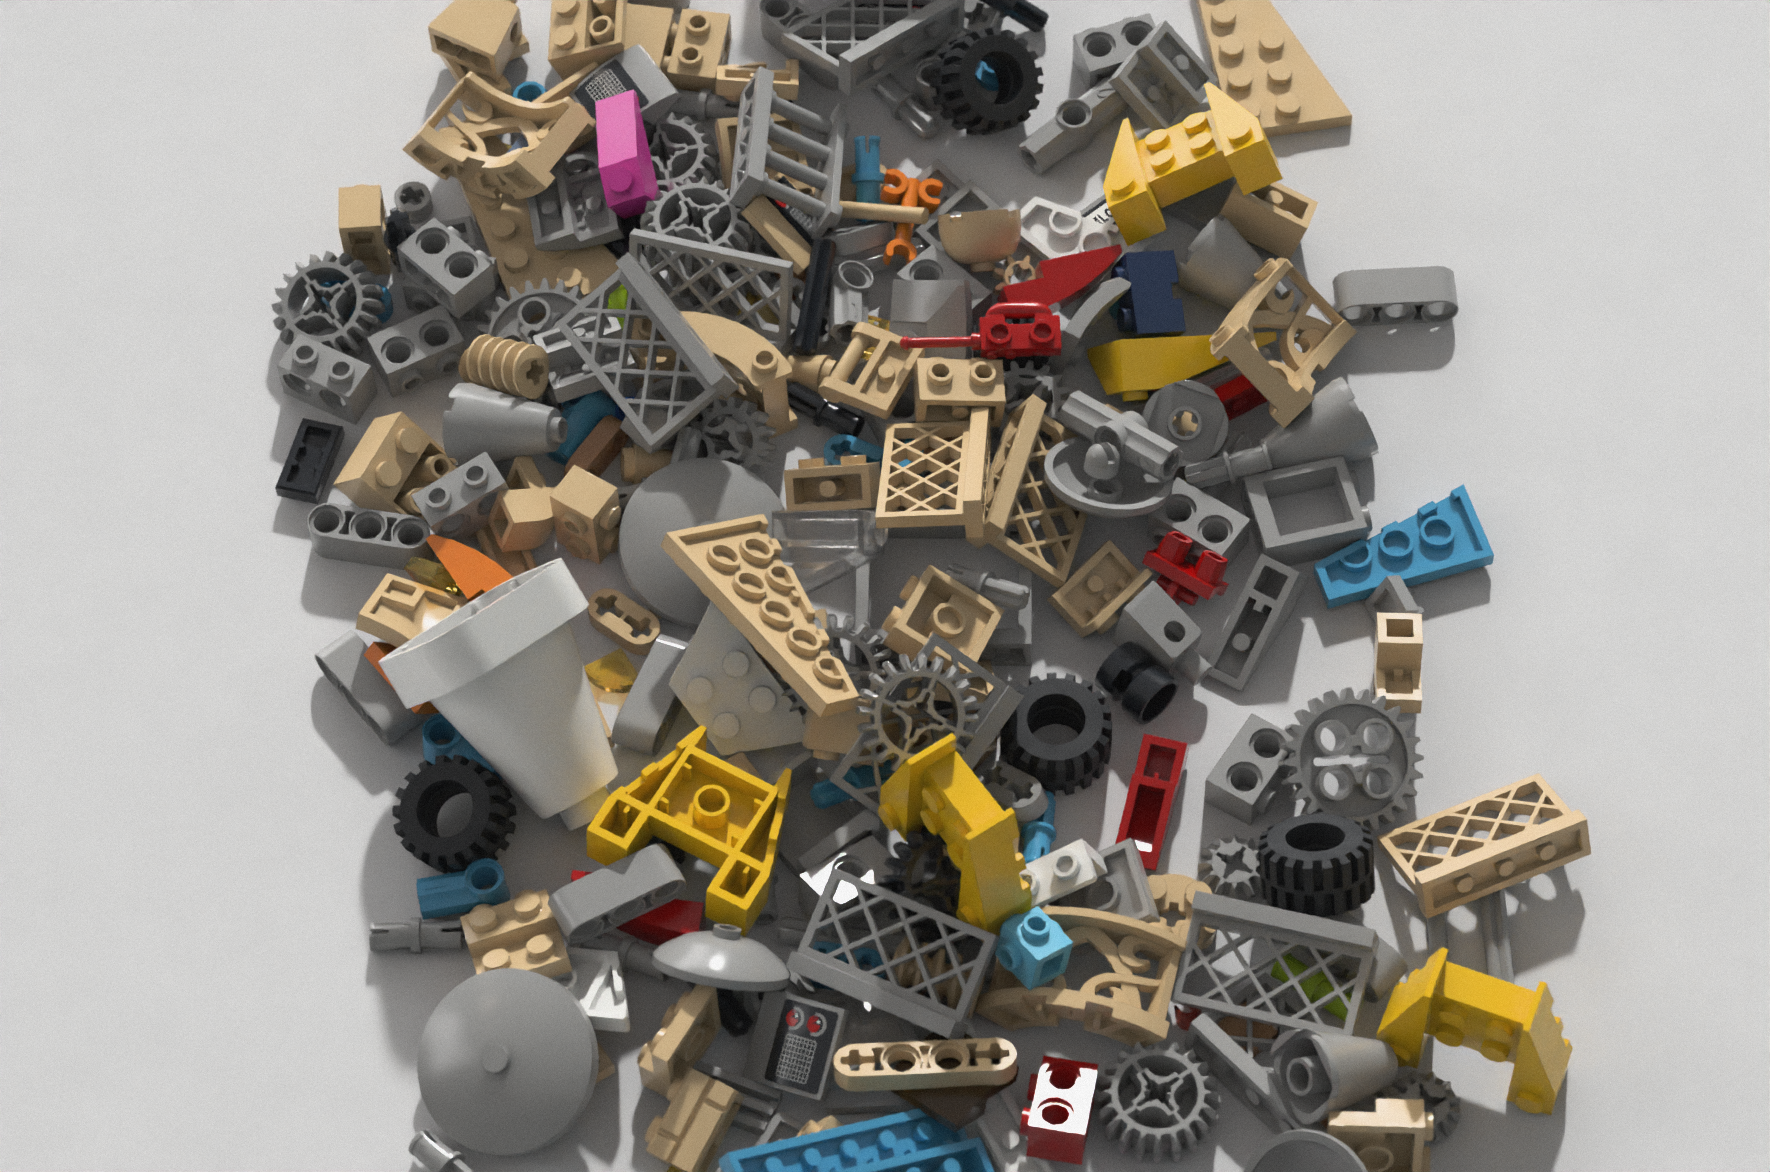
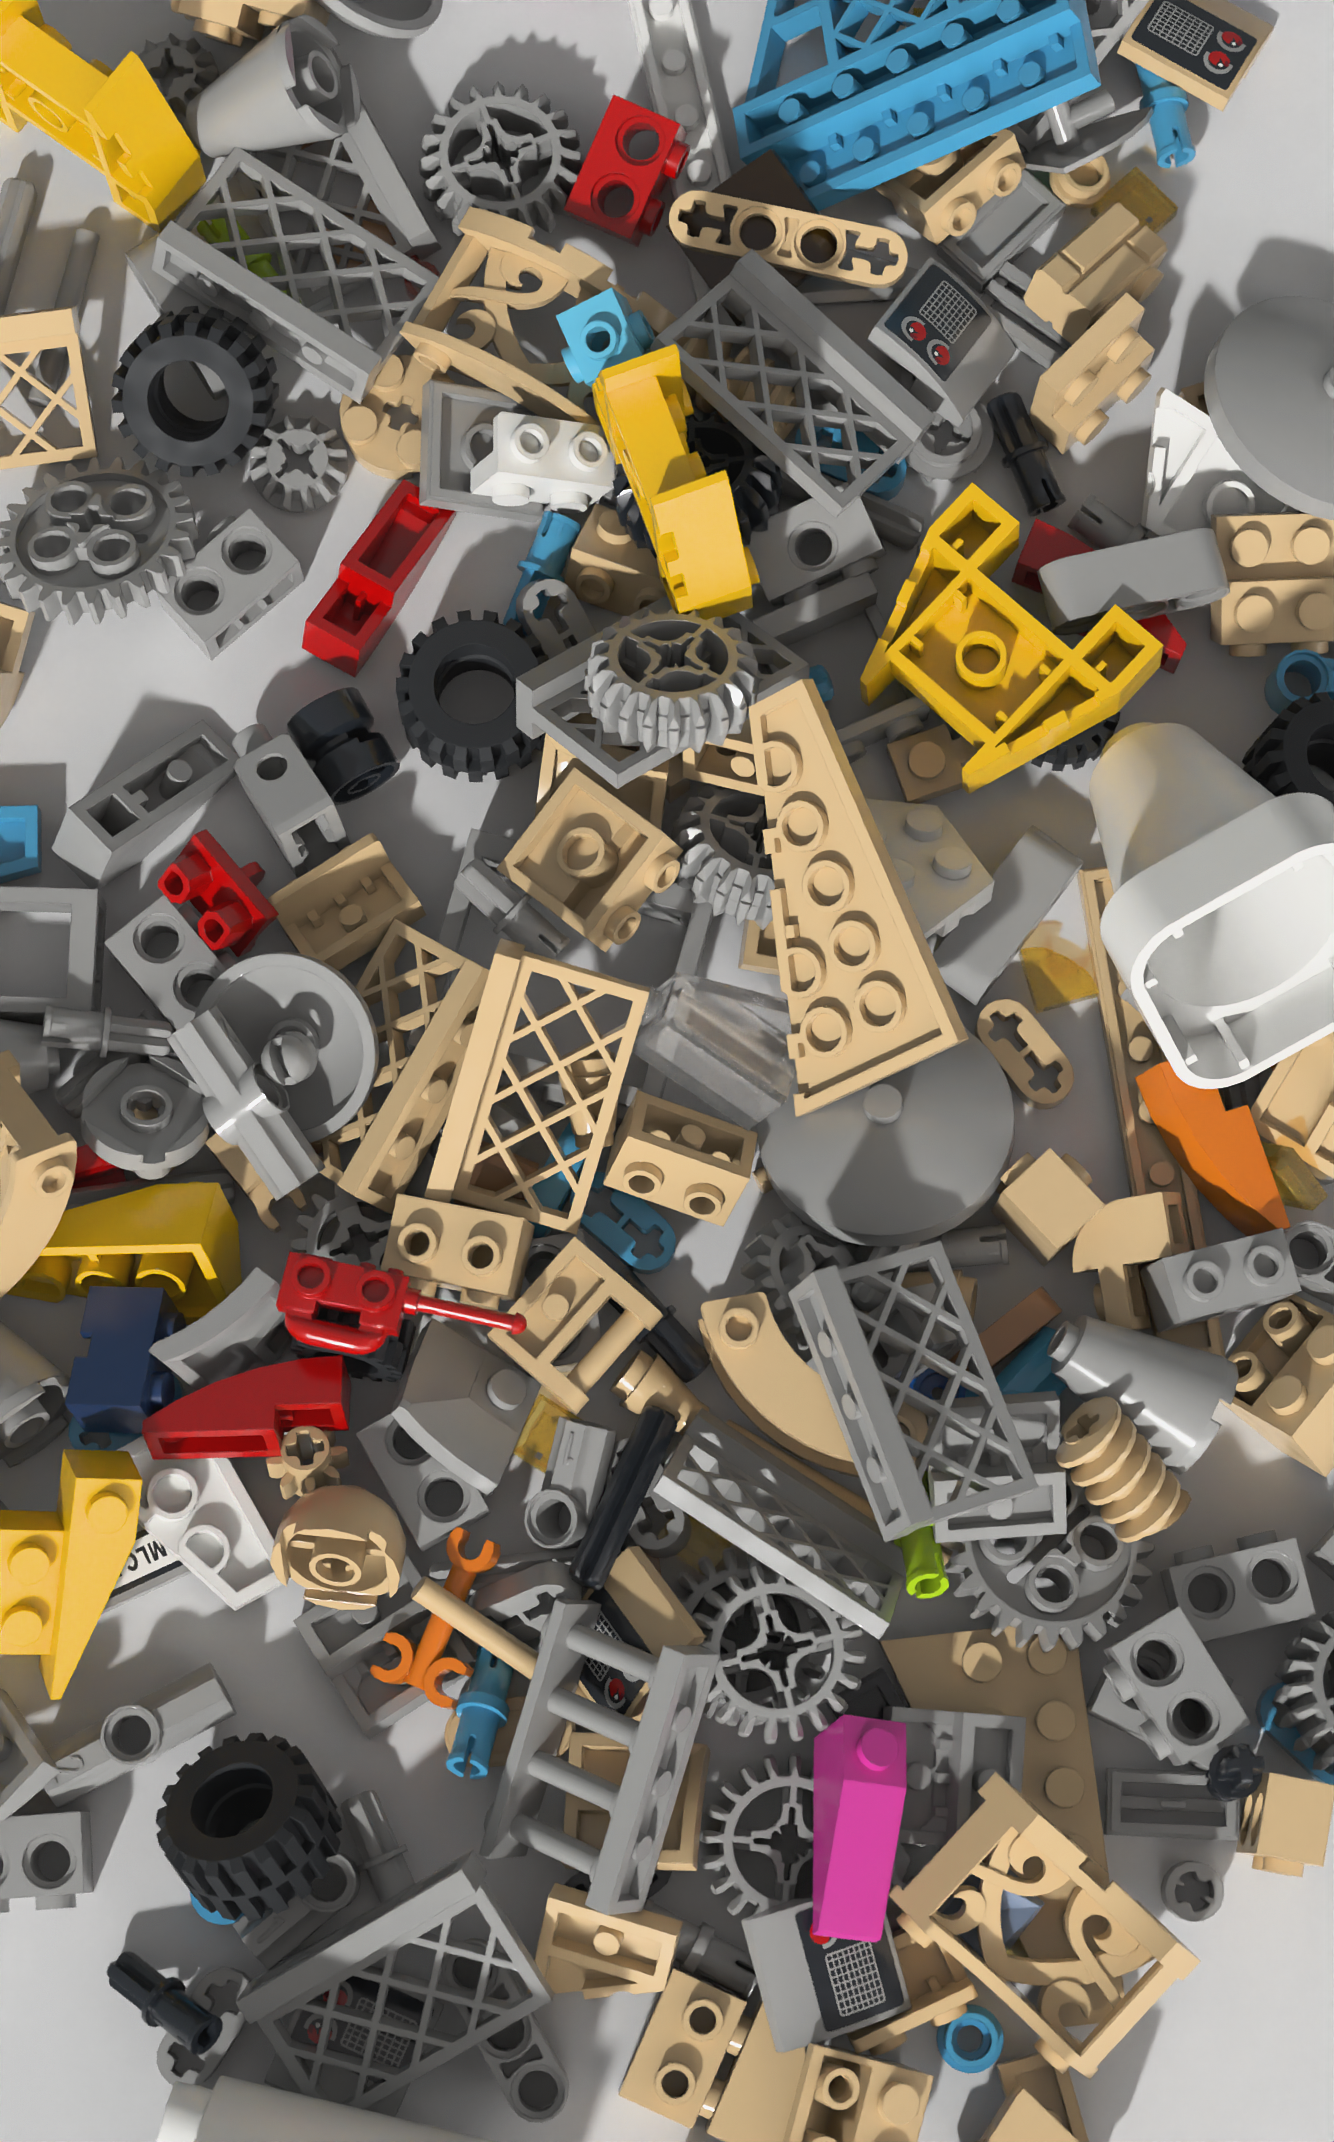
camera: 170 degrees left, 20 degrees up
(722, 960) = (1034, 416): light grey dish -> none

